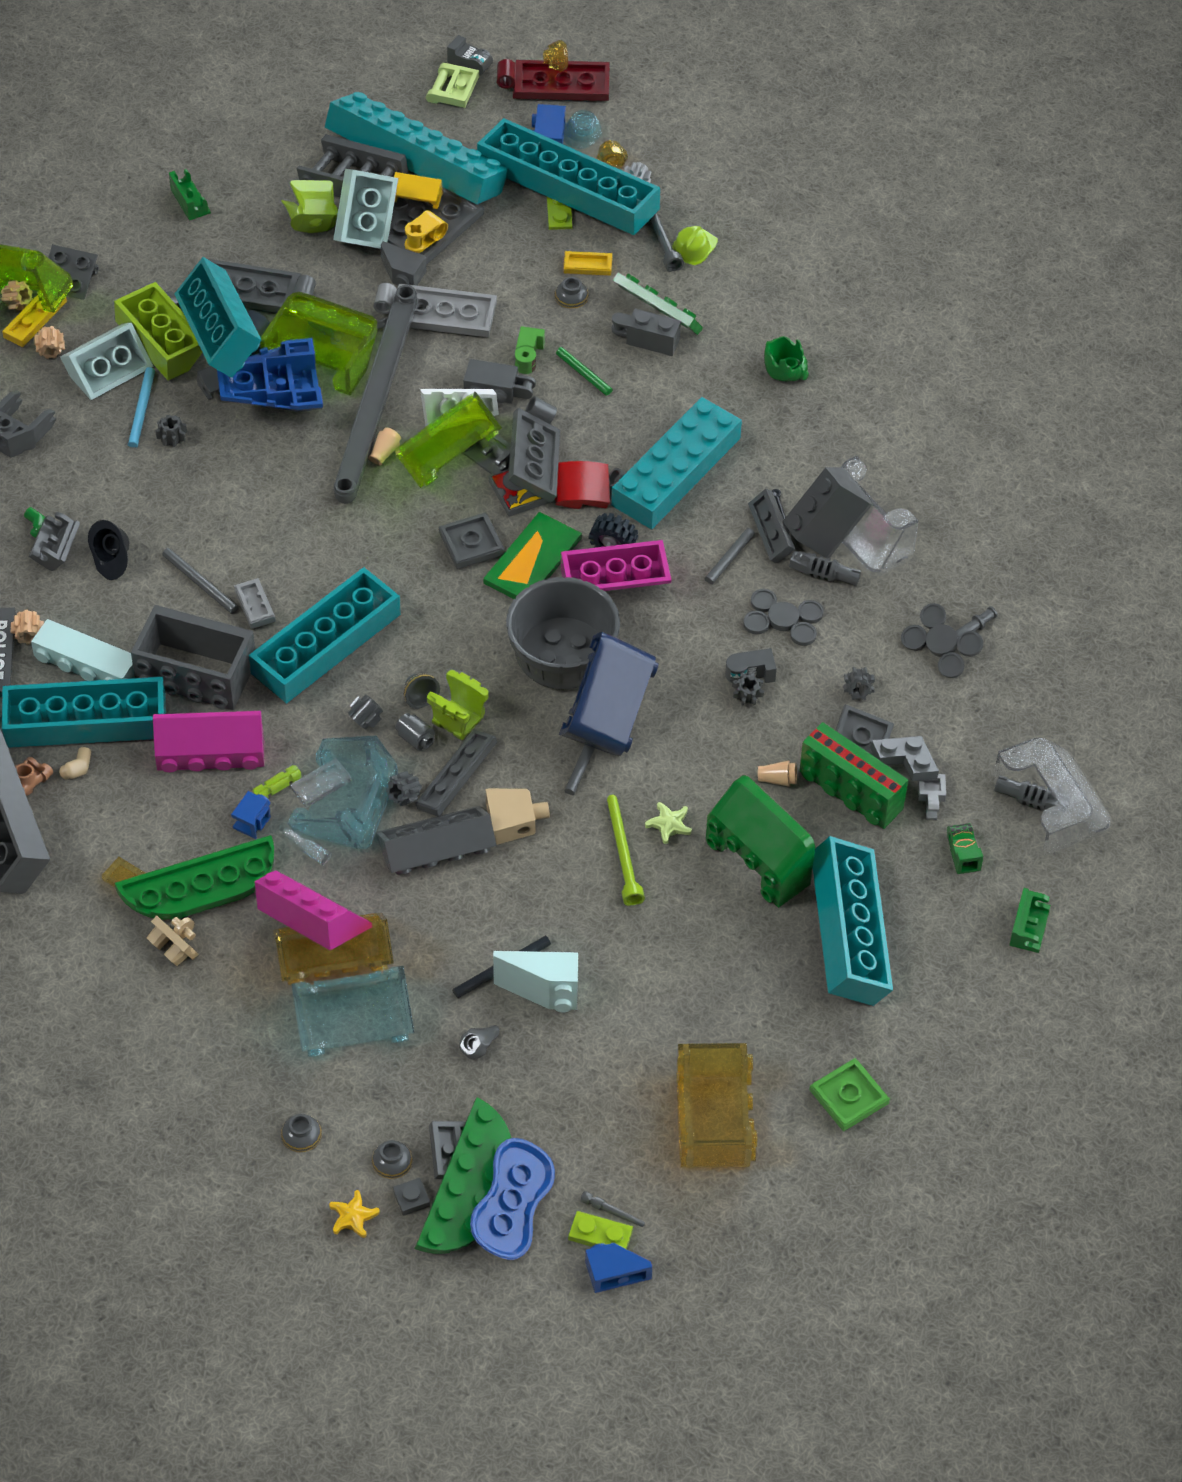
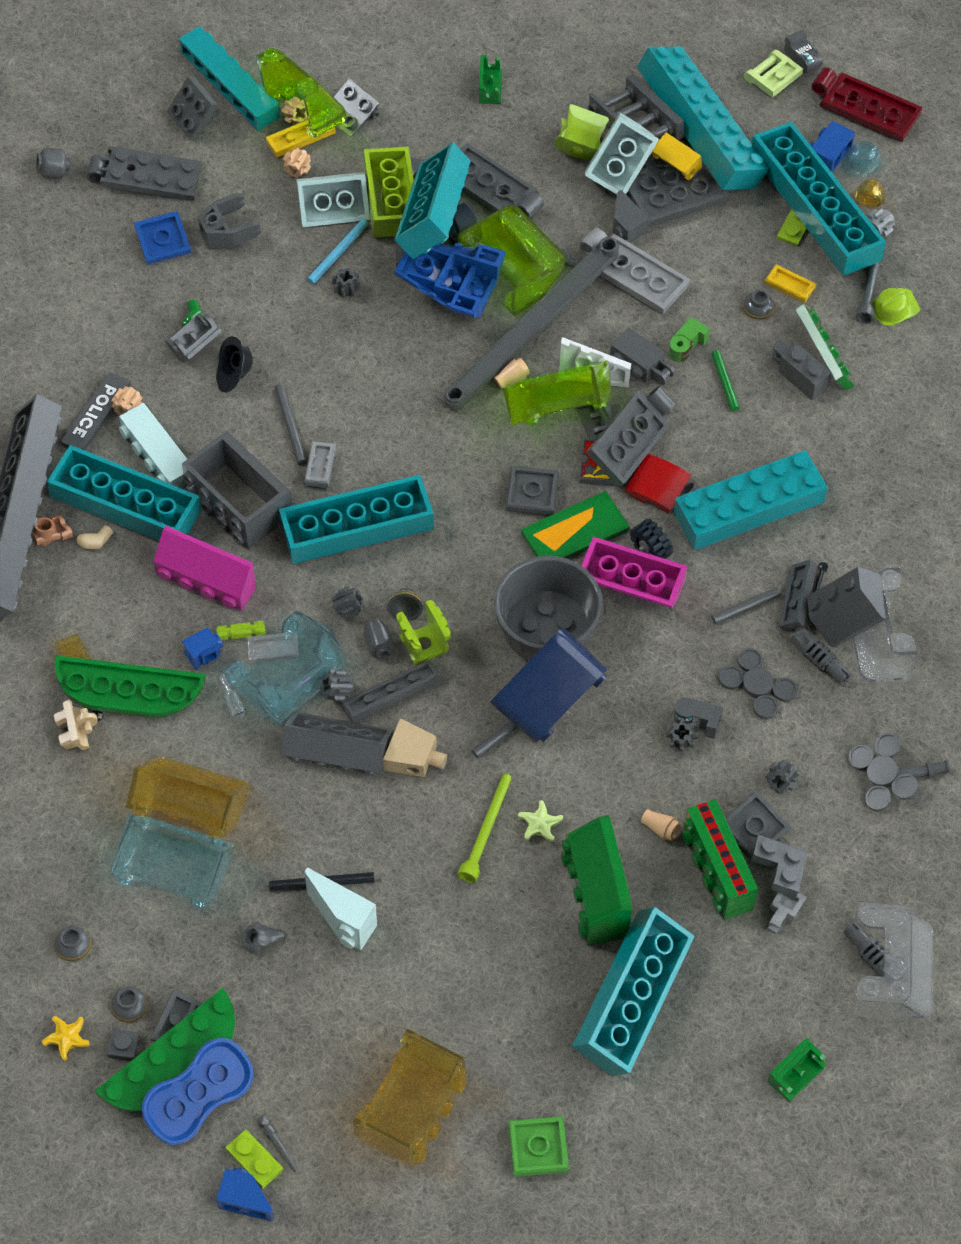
camera: 30 degrees right, 5 degrees up
(307, 911) = (189, 755): dark pink slope -> none
(424, 231) = (662, 194): yellow piece -> none
(556, 55) = (875, 83): clear yellow cone -> none
(785, 360) = (905, 448): green hair -> none
(964, 848) = (781, 973): green leg -> none

